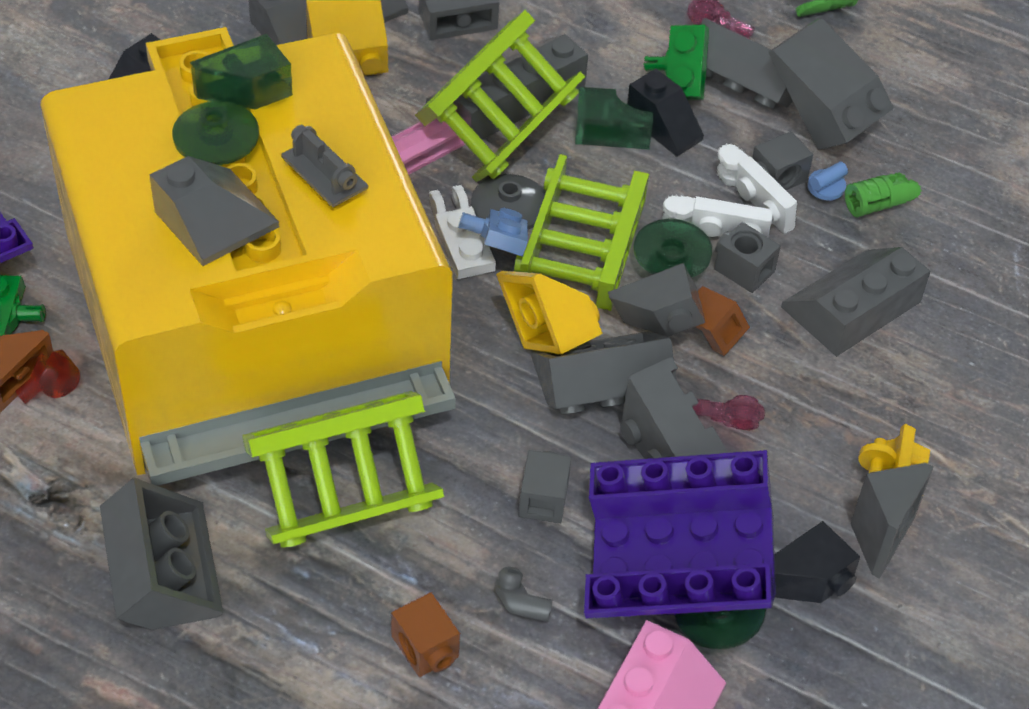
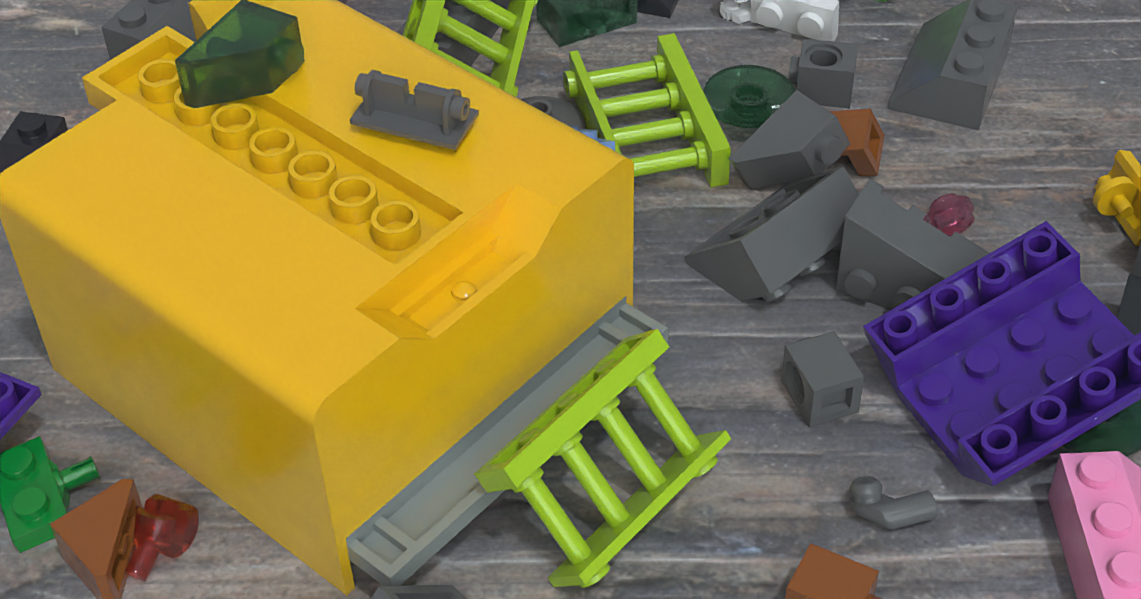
camera: 25 degrees left, 5 degrees down
(208, 208) = (311, 212): dark grey slope -> none
(216, 132) = (247, 134): clear green dish -> none
(548, 313) = (695, 199): yellow slope -> none
(716, 216) = (766, 47): white hinge -> none

